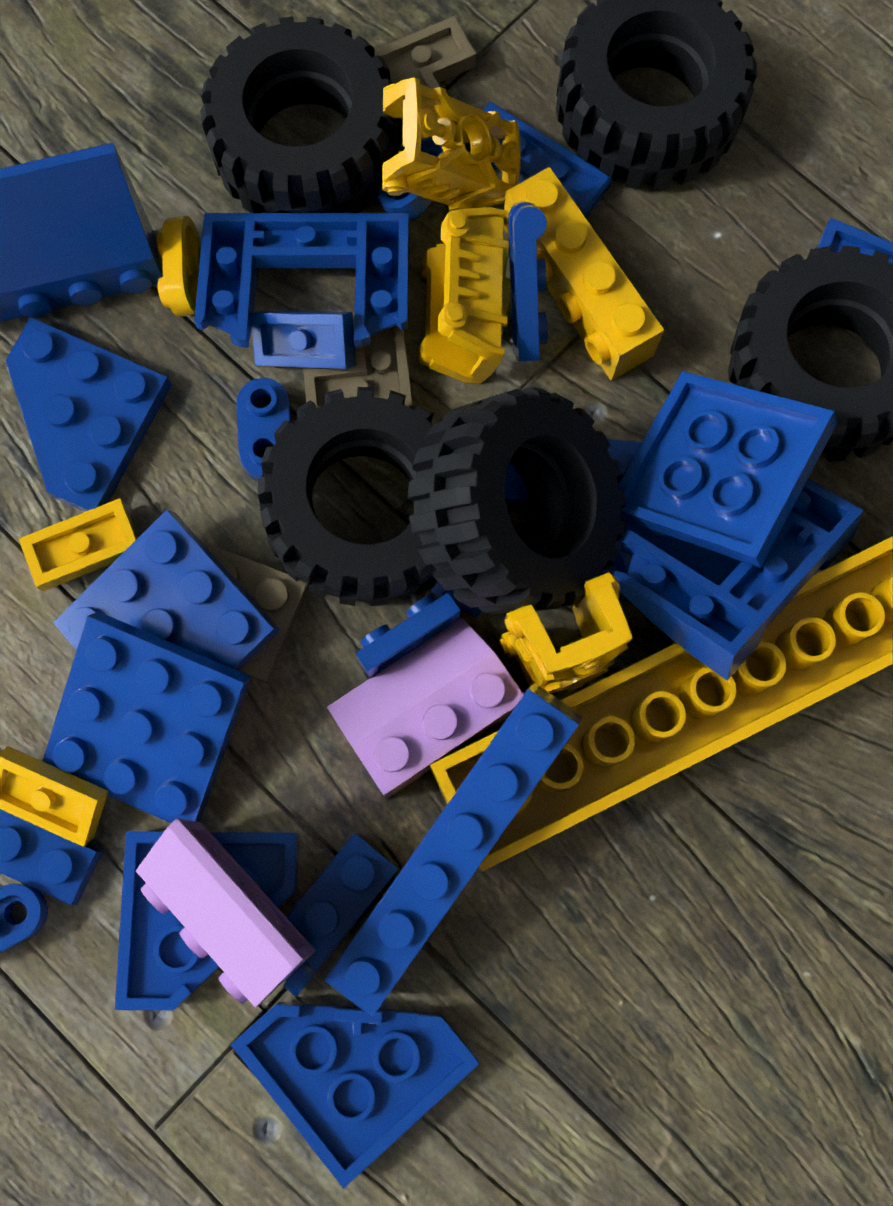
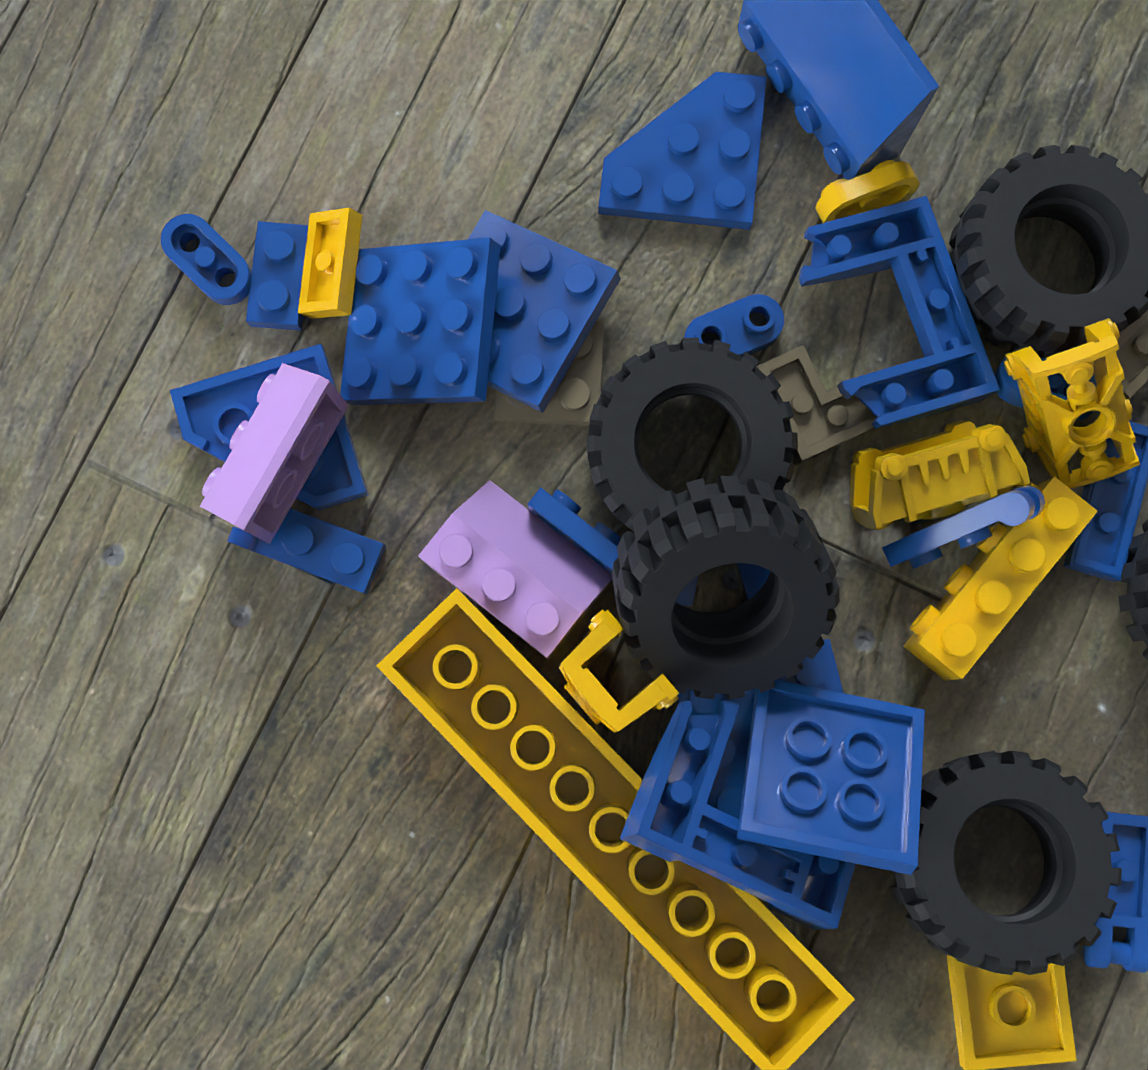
camera: 75 degrees right, 5 degrees up
(78, 544) = (564, 205): yellow plate -> none
(303, 339) = (831, 334): blue plate -> none
(353, 1077) = (178, 613): blue plate -> none
(454, 848) = (394, 635): blue arch -> none

